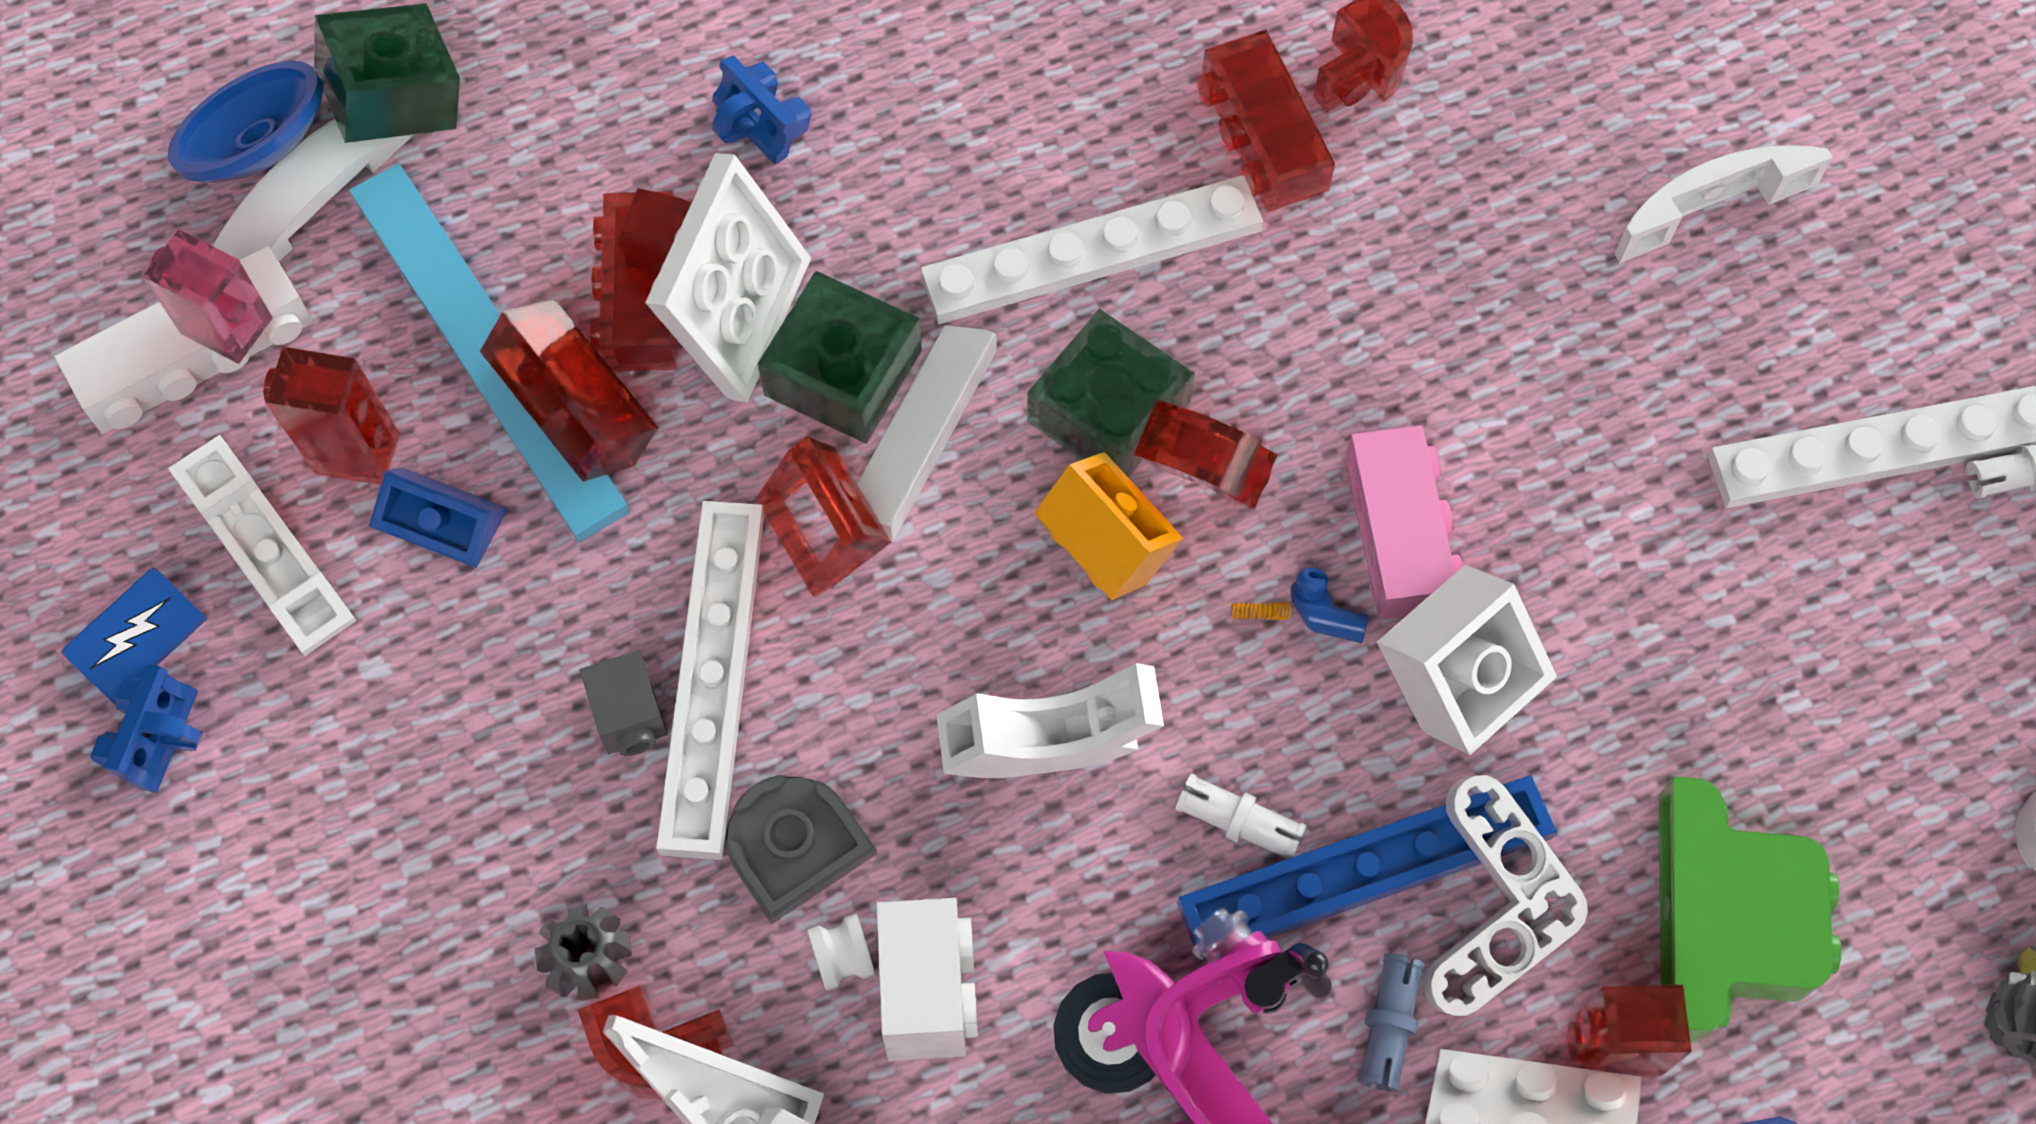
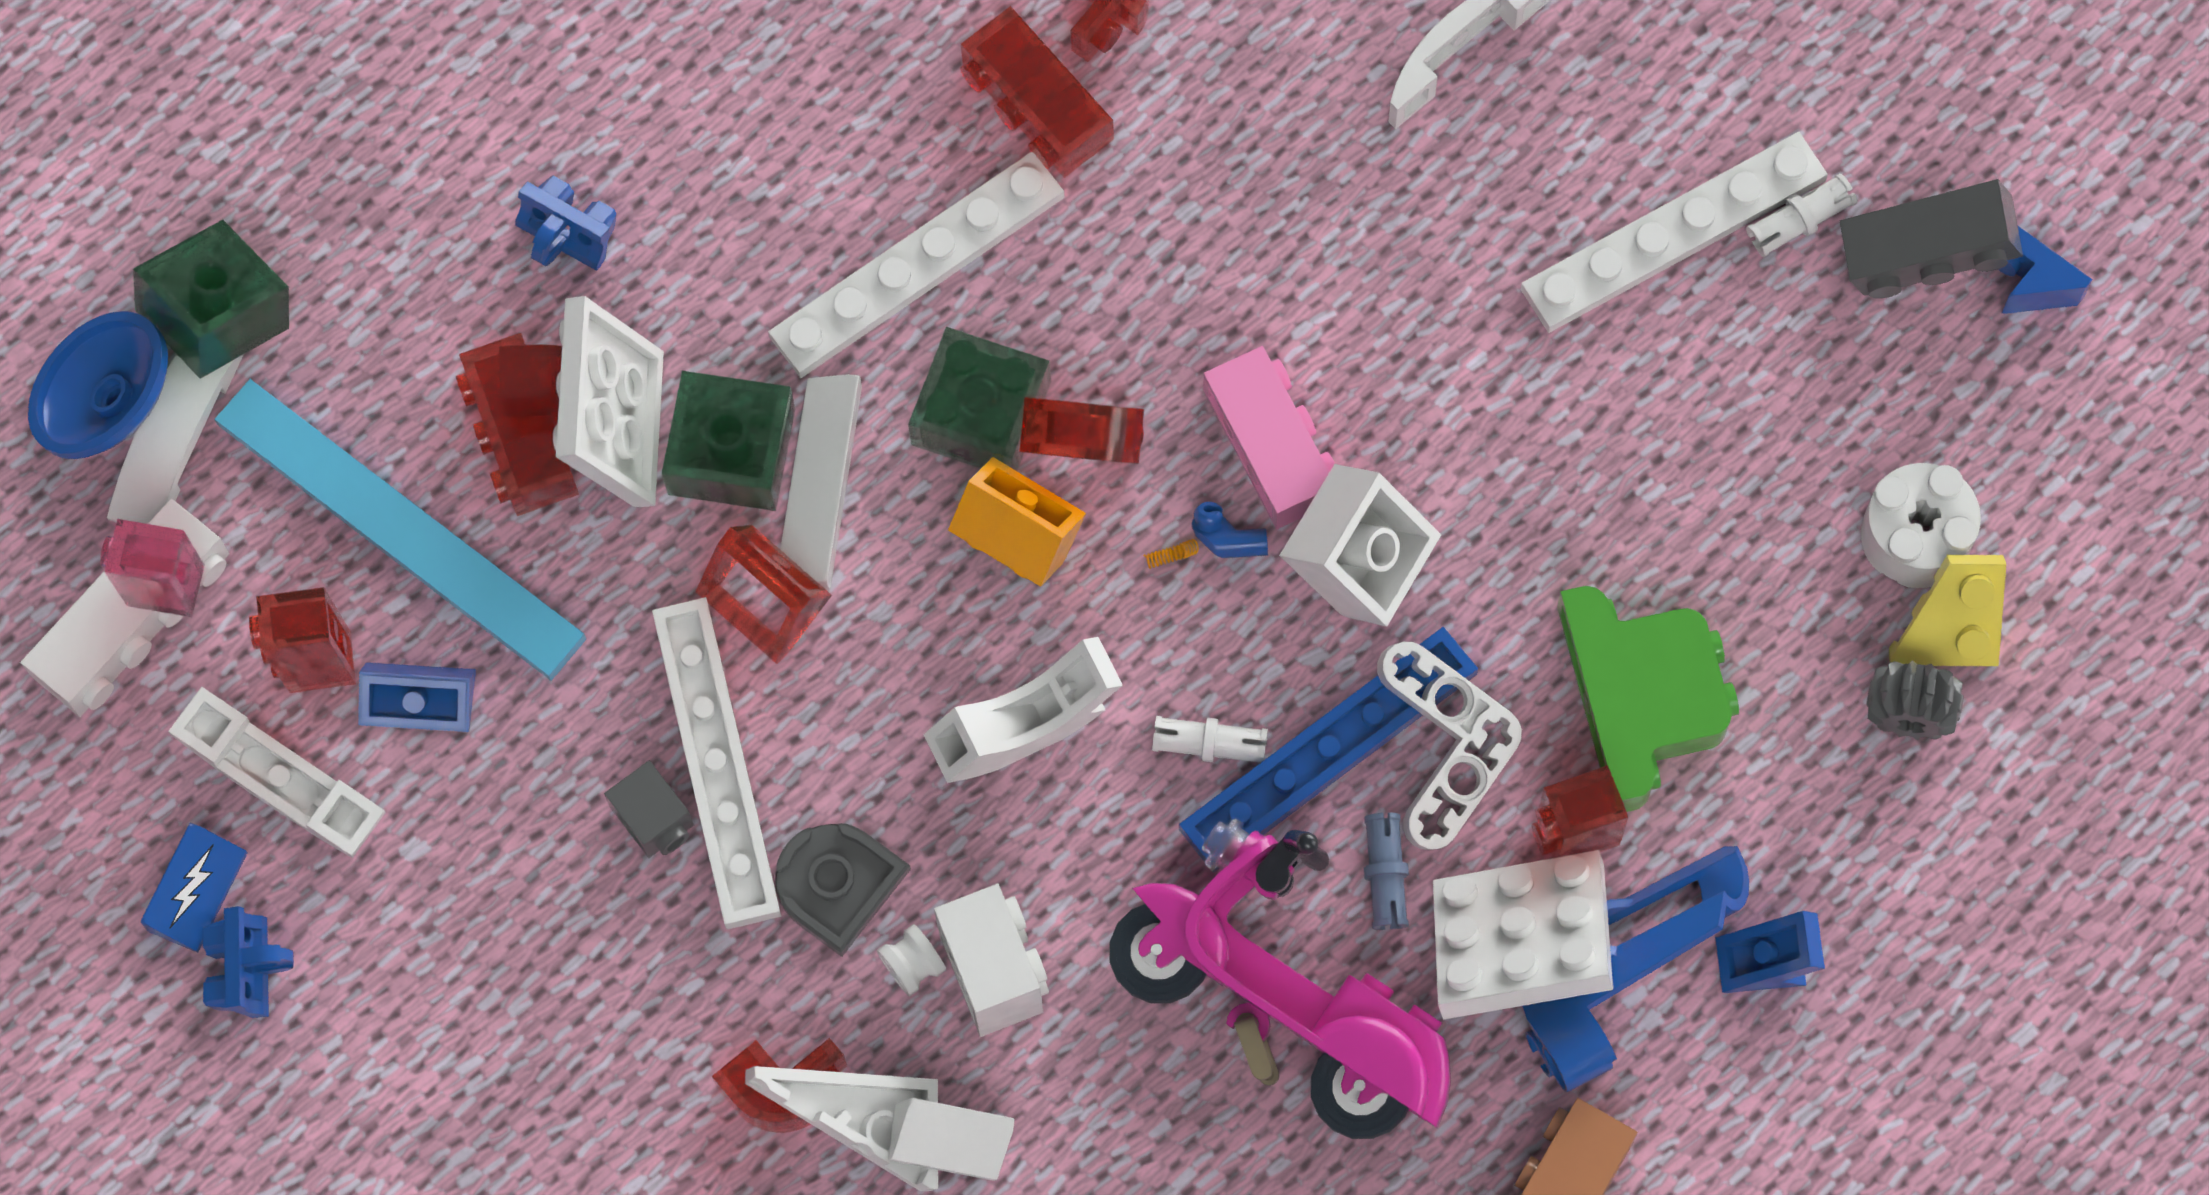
camera: 15 degrees left, 5 degrees up
(568, 389) = (496, 547): clear red brick -> none
(573, 936) = (711, 1036): dark grey piece -> none

